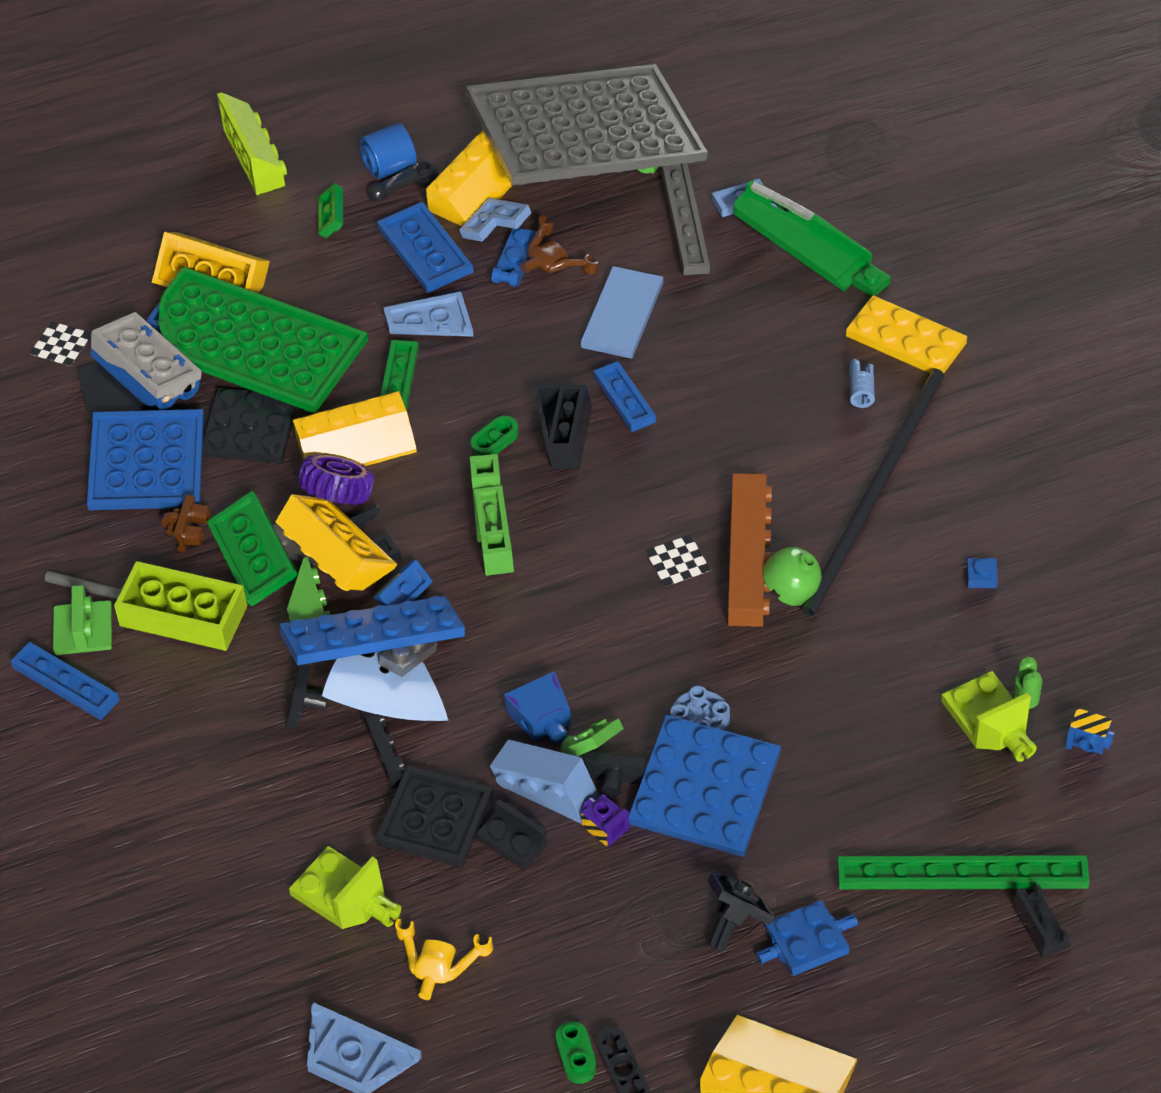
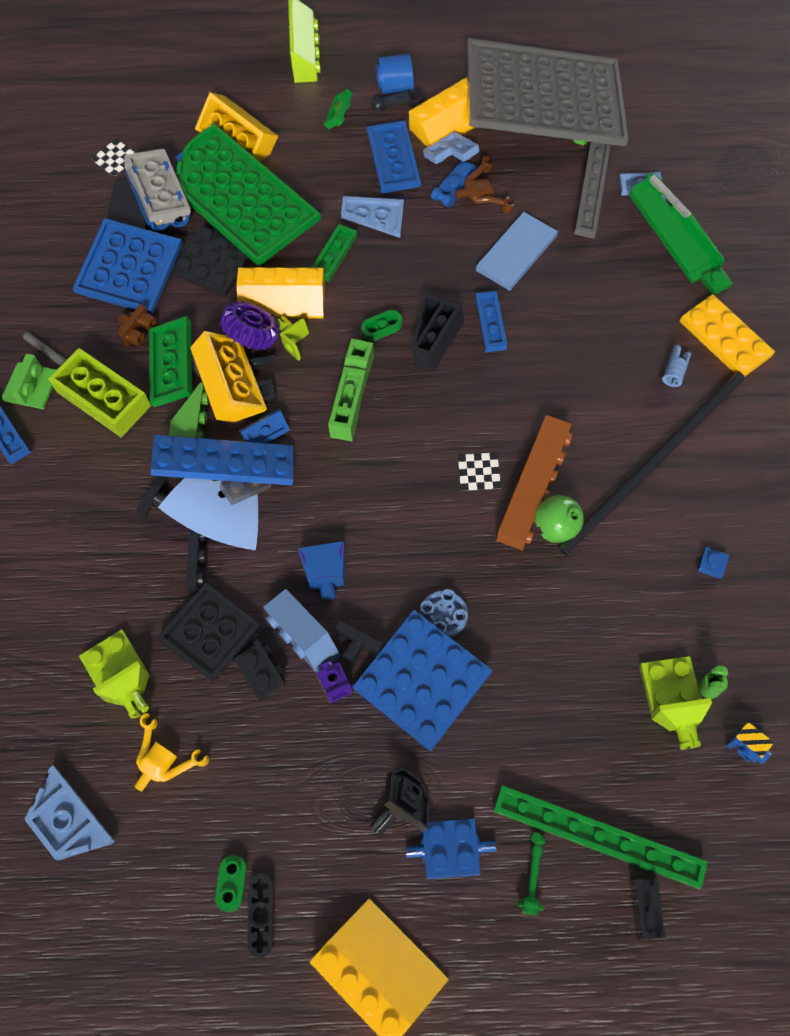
camera: 20 degrees right, 15 degrees up
(389, 478) = (292, 334): none -> lime bracket
(591, 738) = (345, 613): bright green plate -> none
(915, 959) = (529, 904): none -> green piece

